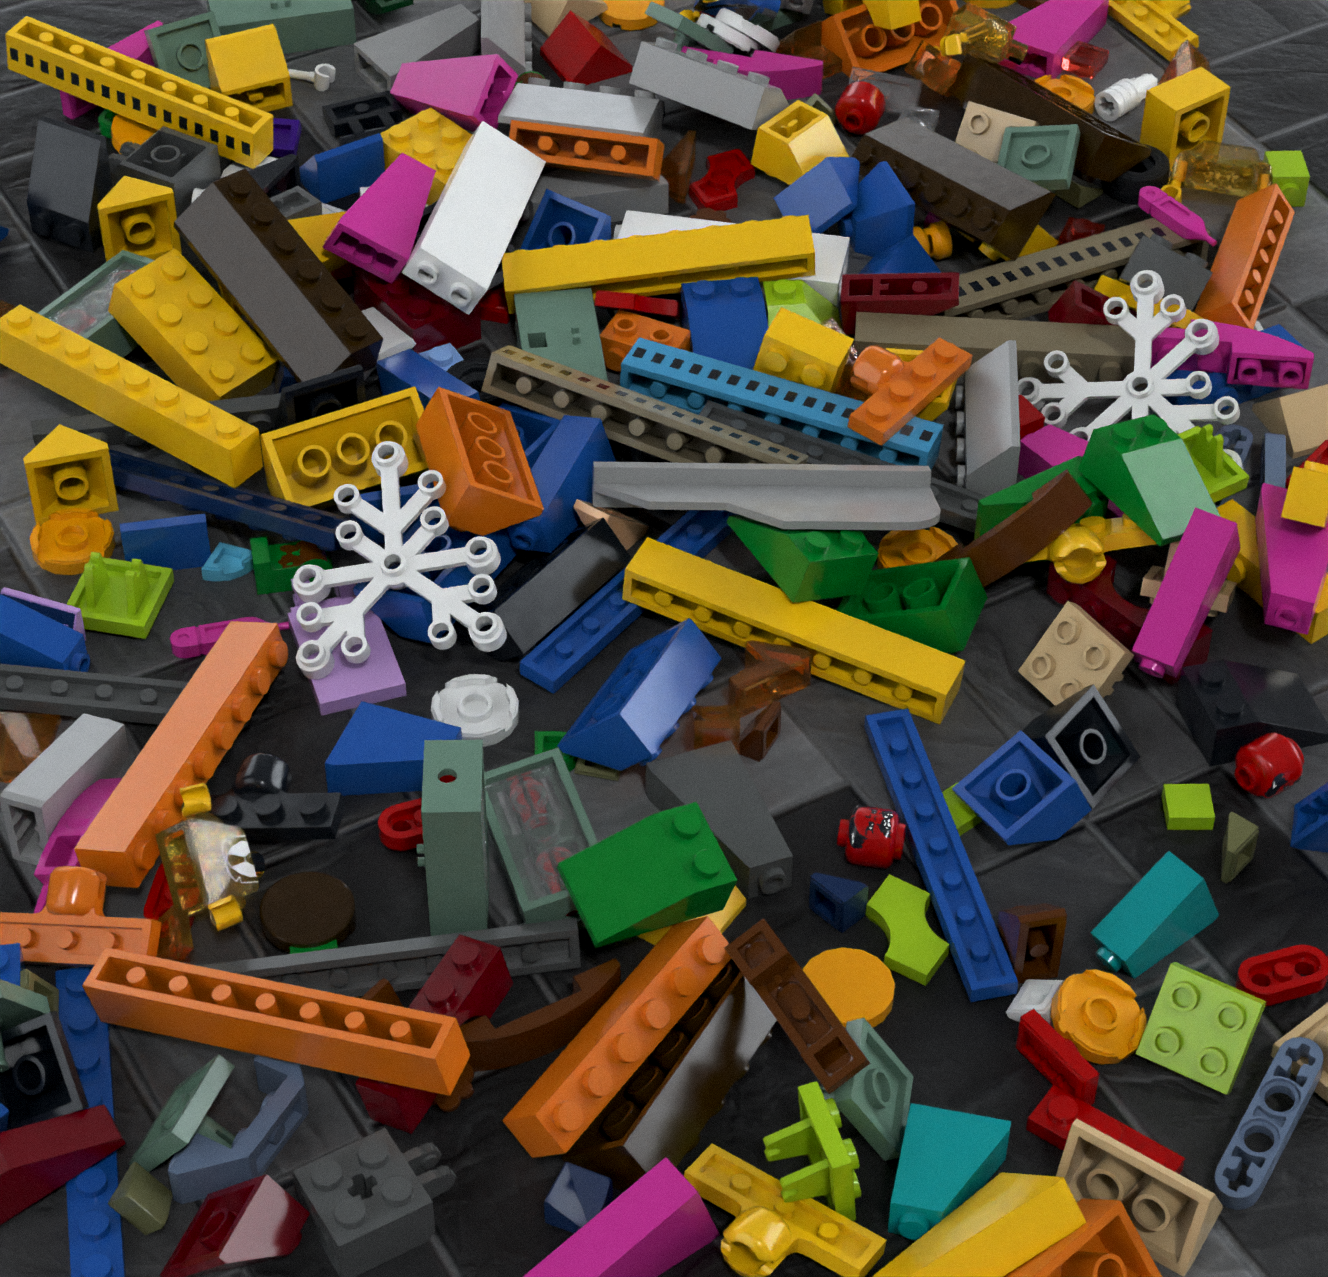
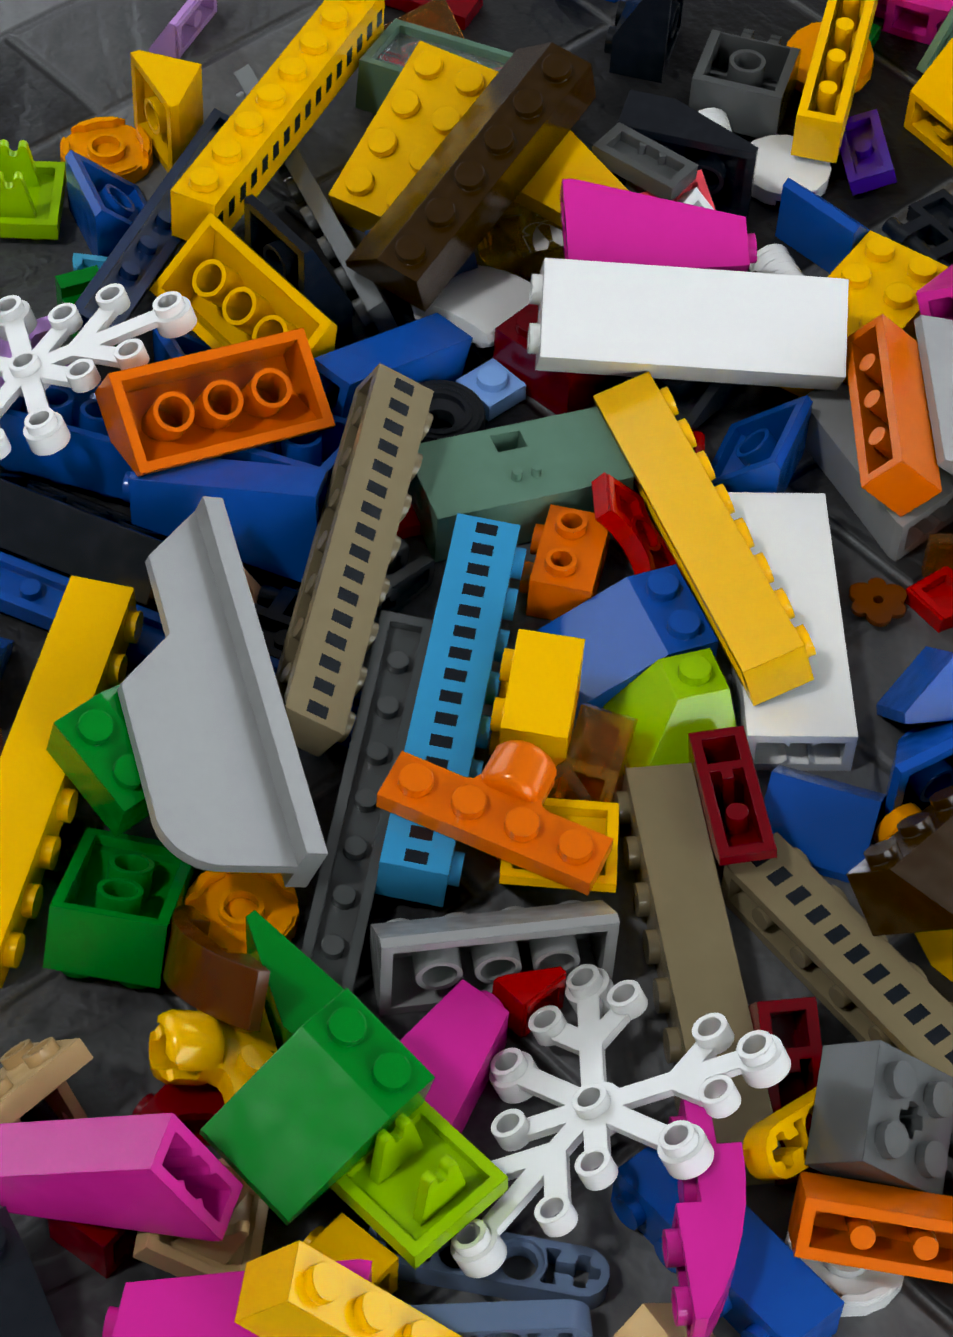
camera: 75 degrees right, 5 degrees up
(138, 219) = (621, 59): yellow slope -> none

